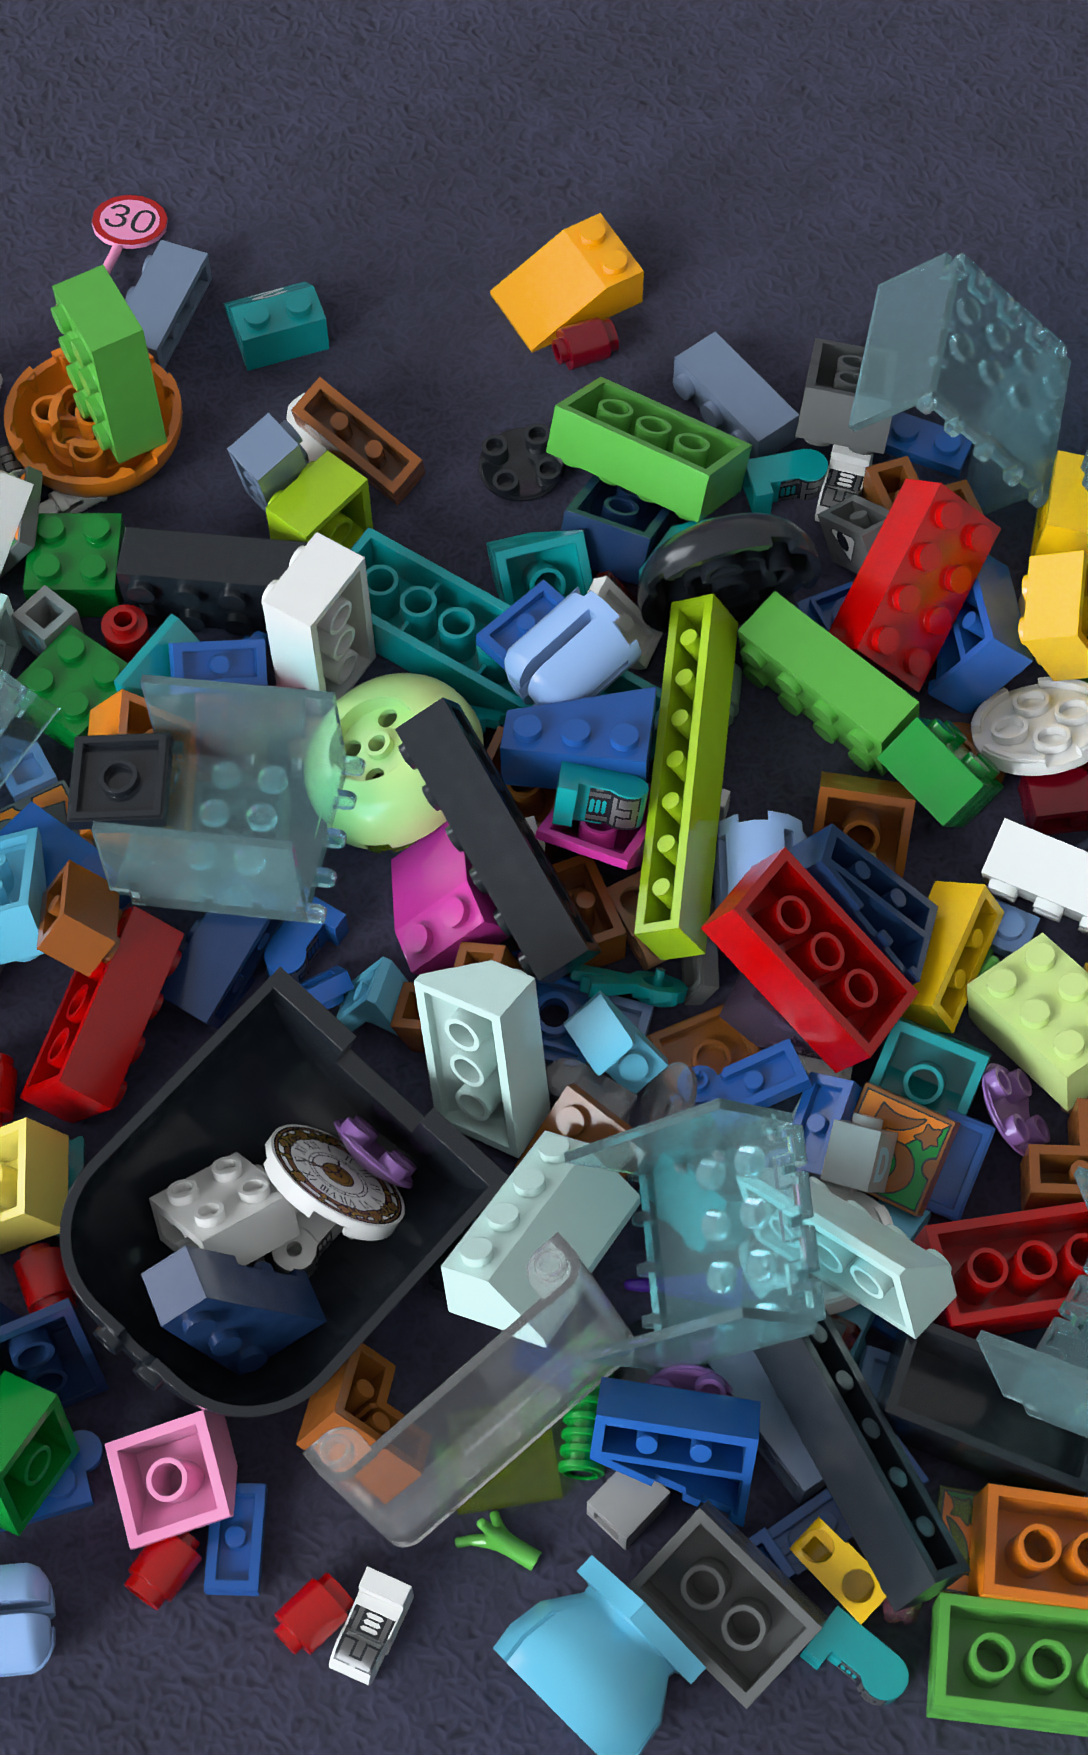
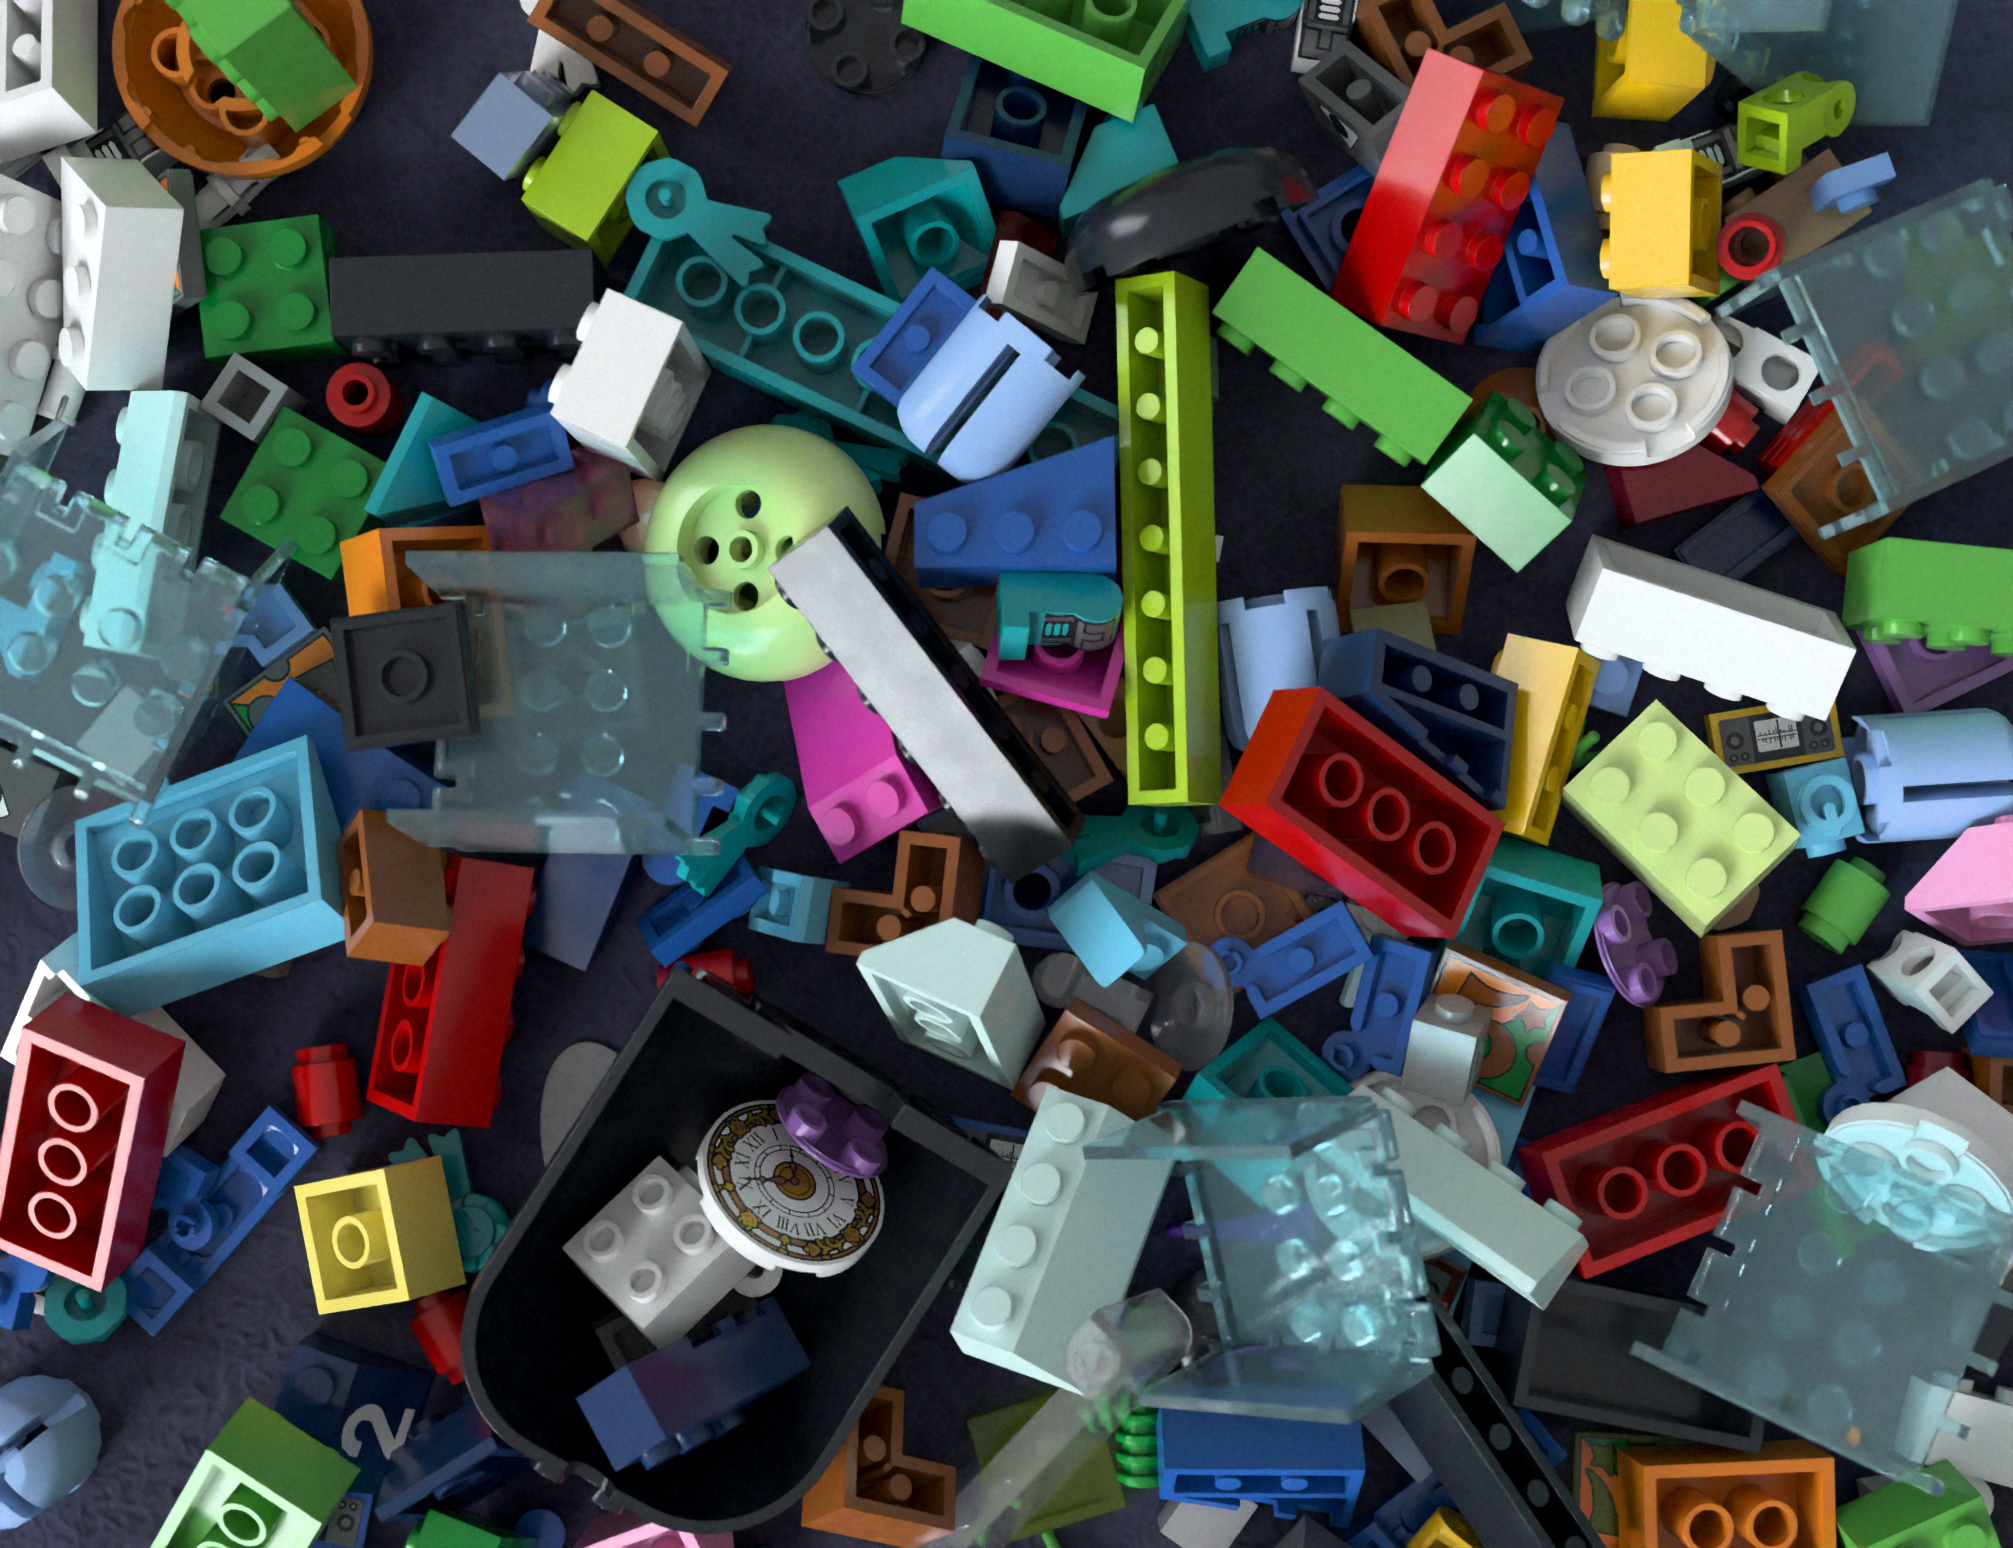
camera: 10 degrees left, 25 degrees up
(356, 941) = (756, 818): none -> teal piece
(370, 525) = (671, 202): none -> teal piece

